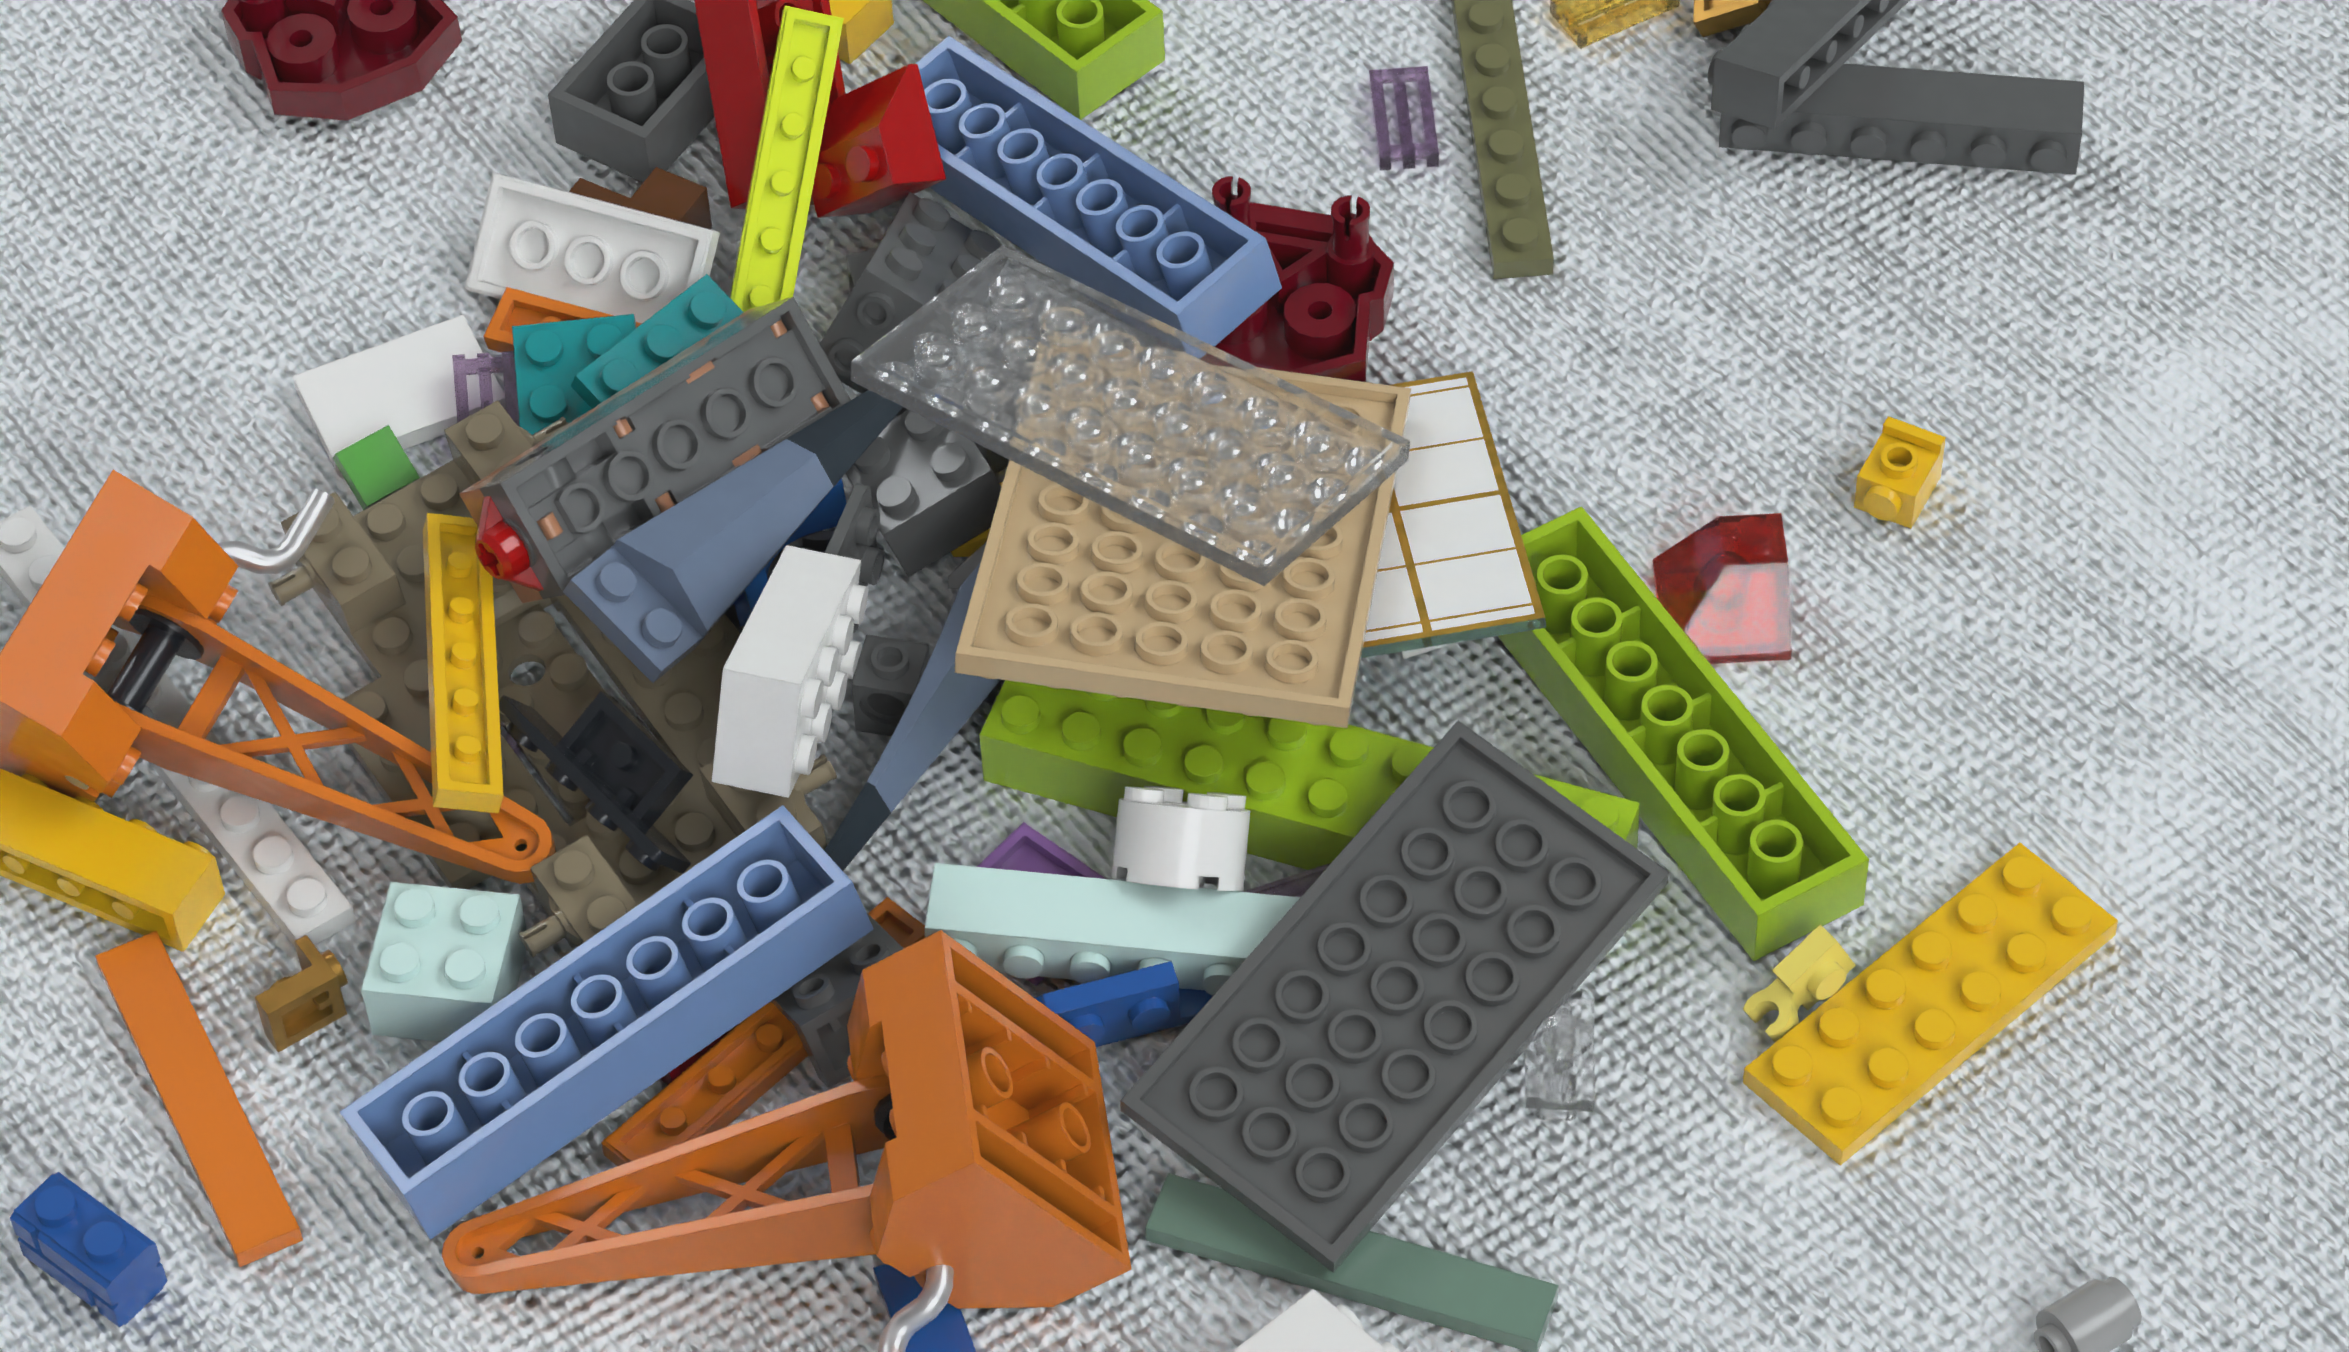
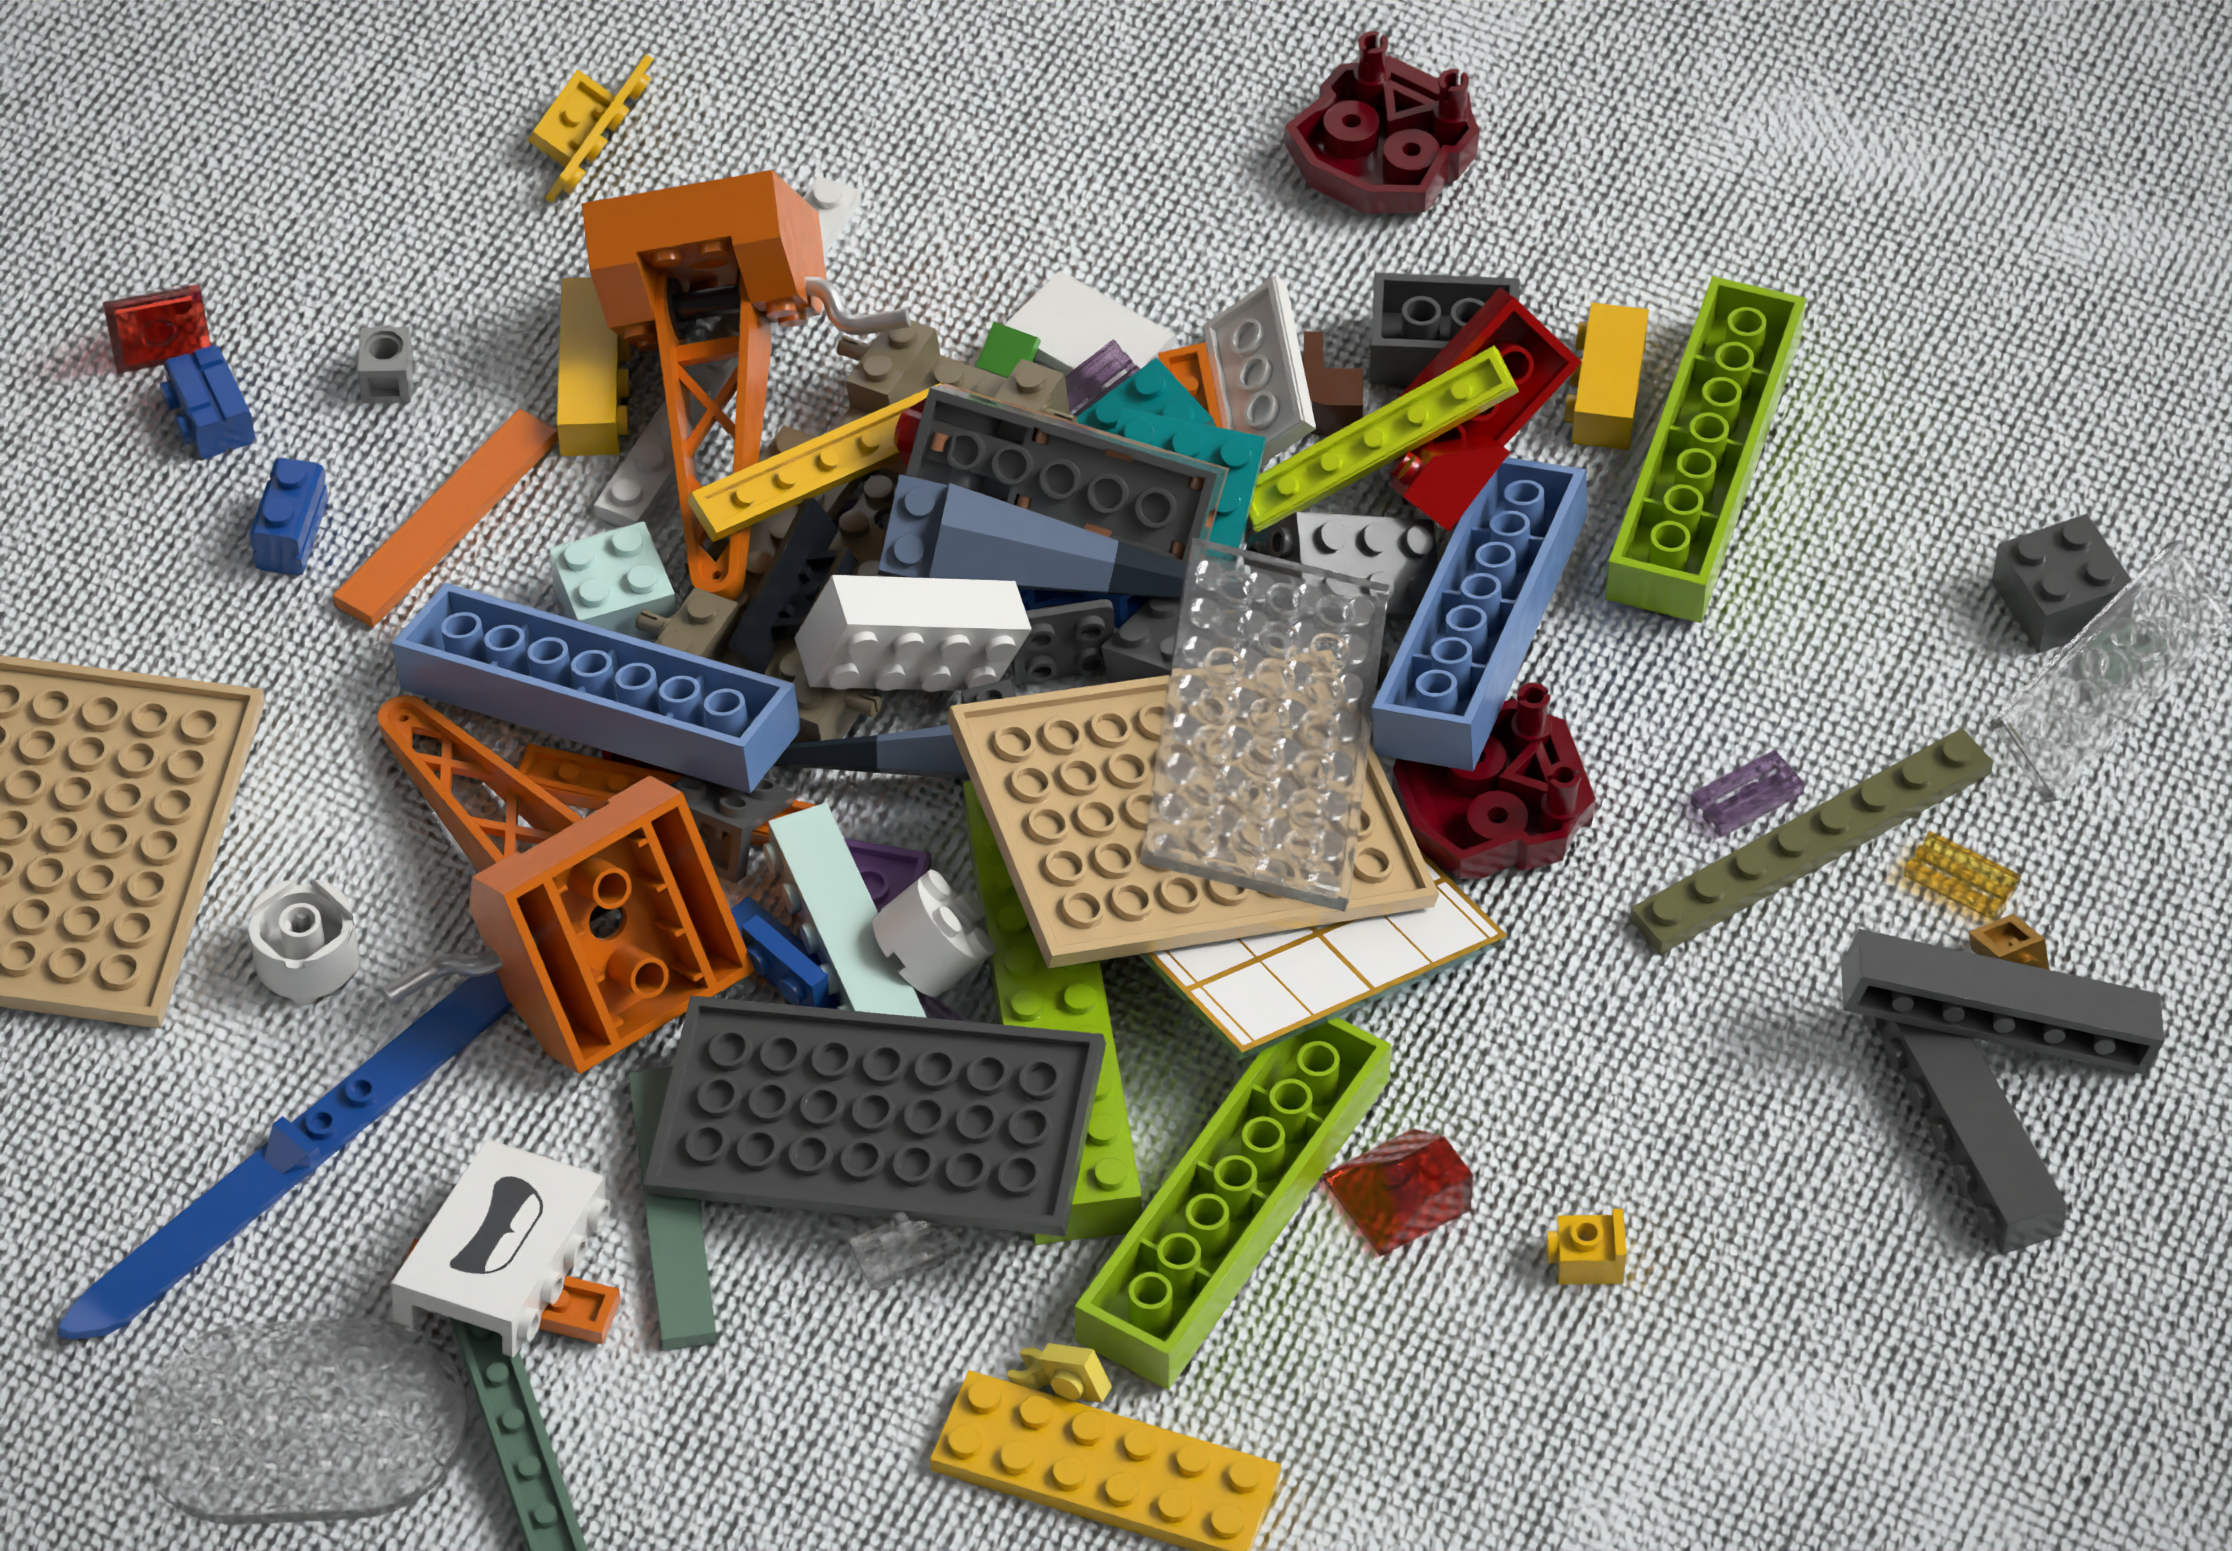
camera: 60 degrees right, 0 degrees up
(304, 1001) = (539, 528): pearl gold bracket -> none

